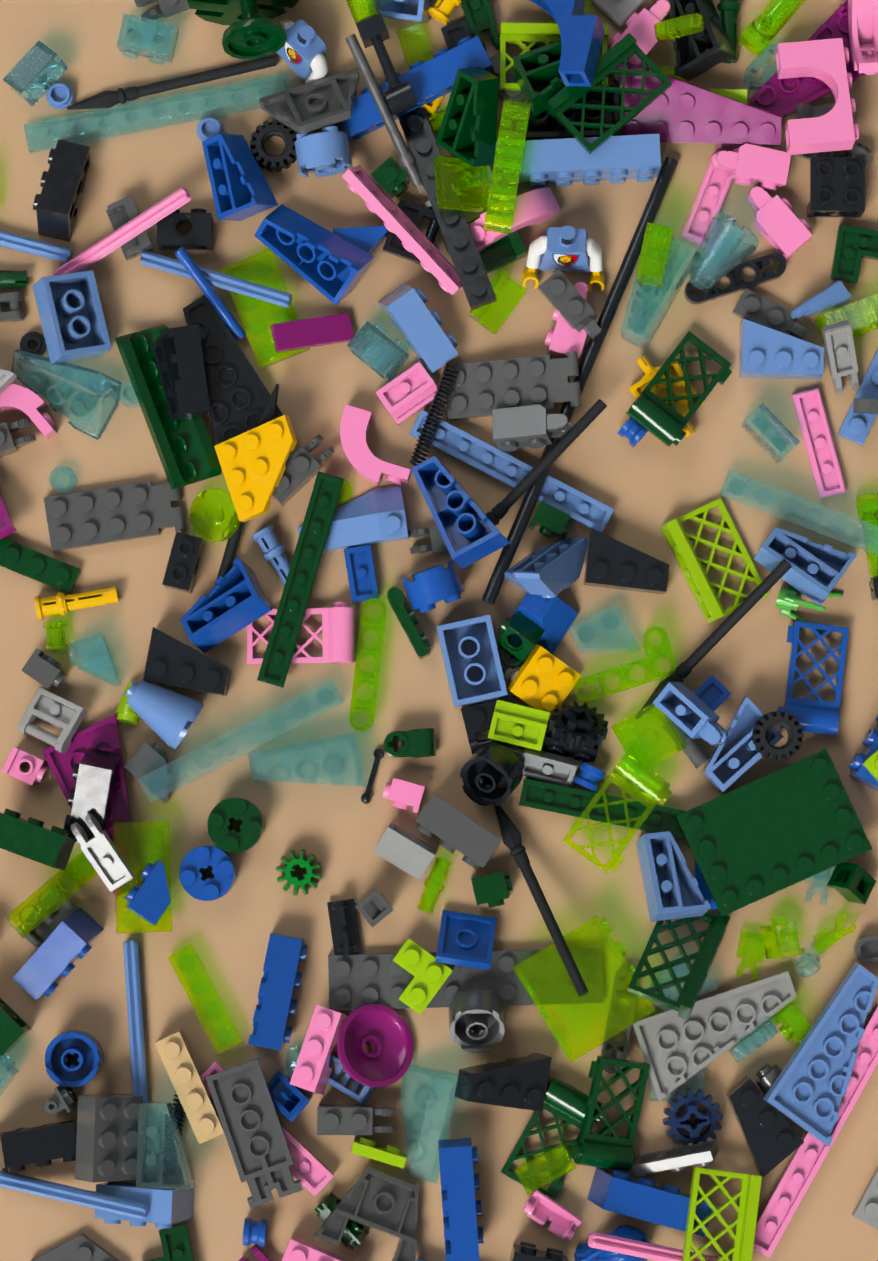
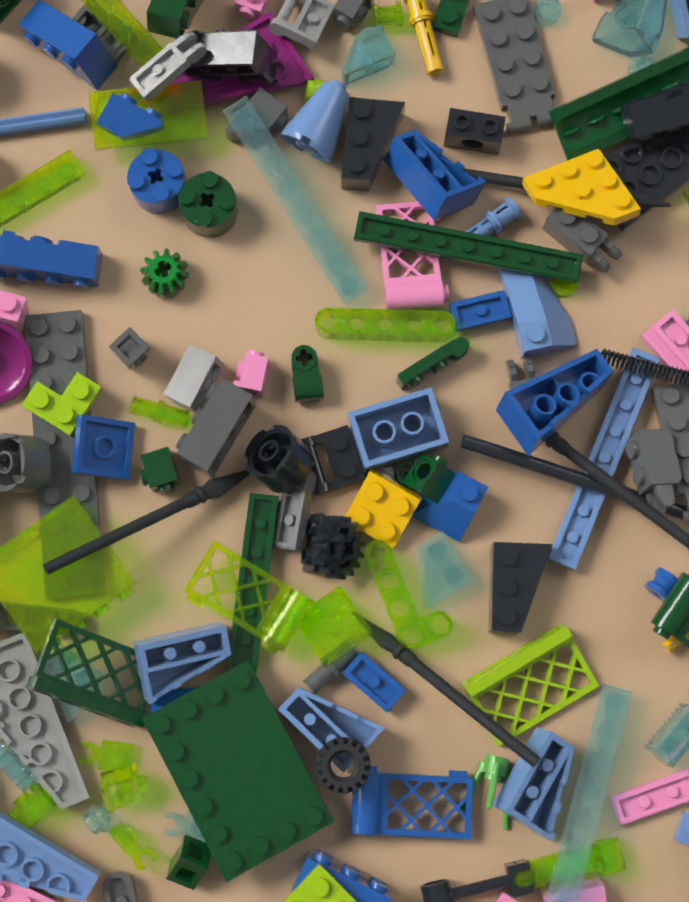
camera: 90 degrees right, 5 degrees down
(213, 515) = (525, 156): clear neon green tile -> none
(312, 762) = (279, 282): clear light blue wedge -> none
(344, 927) = (109, 324): black hinge -> none
(353, 439) = (624, 290): bright pink arch -> none
(366, 797) = (247, 336): black hinge -> none
(433, 586) = (474, 383): blue brick -> none
(518, 725) = (333, 483): lime plate -> none
(550, 568) = (504, 504): medium blue wedge -> none
(551, 521) = (555, 502): dark green brick -> none
(589, 777) = (284, 565): blue wheel -> none
(690, 713) = (360, 666): medium blue hinge -> none

